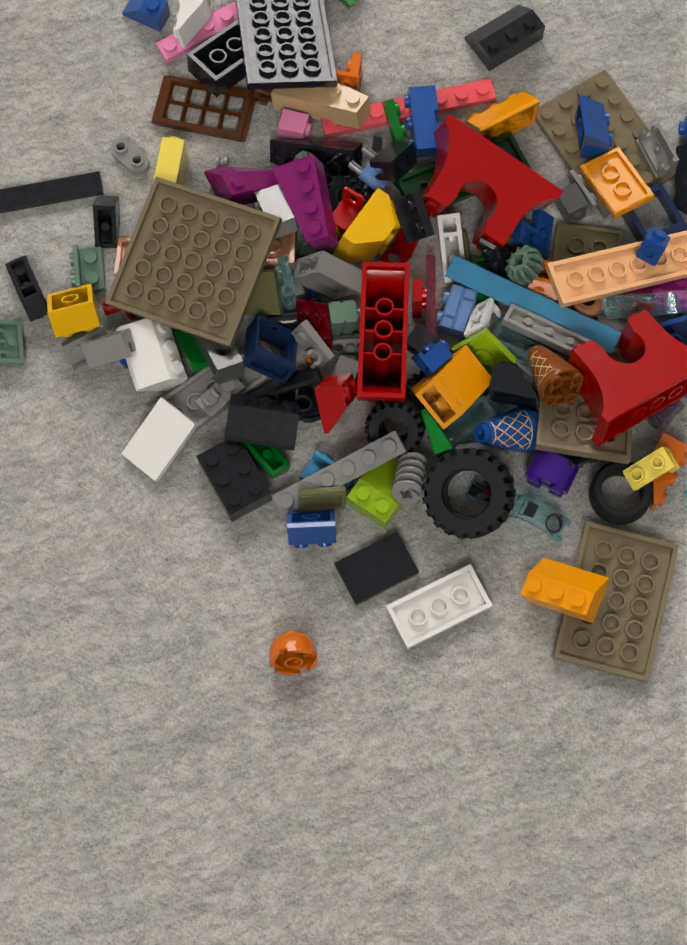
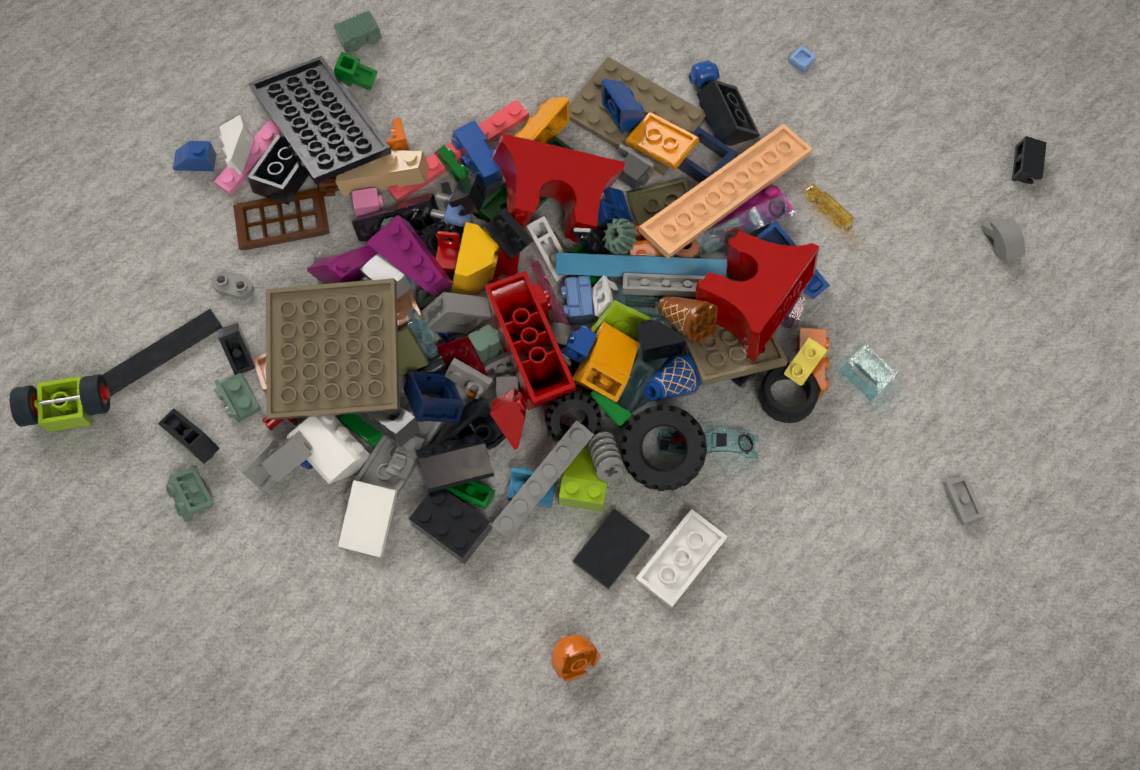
camera: 25 degrees left, 5 degrees down
(73, 311) = (240, 438): yellow brick -> none
(172, 160) = (272, 270): light yellow brick -> none
(311, 528) = (540, 537): blue slope -> none
(321, 499) = (537, 508): olive tile -> none
(506, 36) = (513, 61): black slope -> none
(551, 472) = (723, 400): dark purple brick -> none
(565, 589) = (783, 495): light orange slope -> none
(632, 608) = (829, 488): dark tan plate -> none
(653, 246) = (719, 178): blue bracket -> none
(657, 151) = (683, 102): light grey hinge -> none

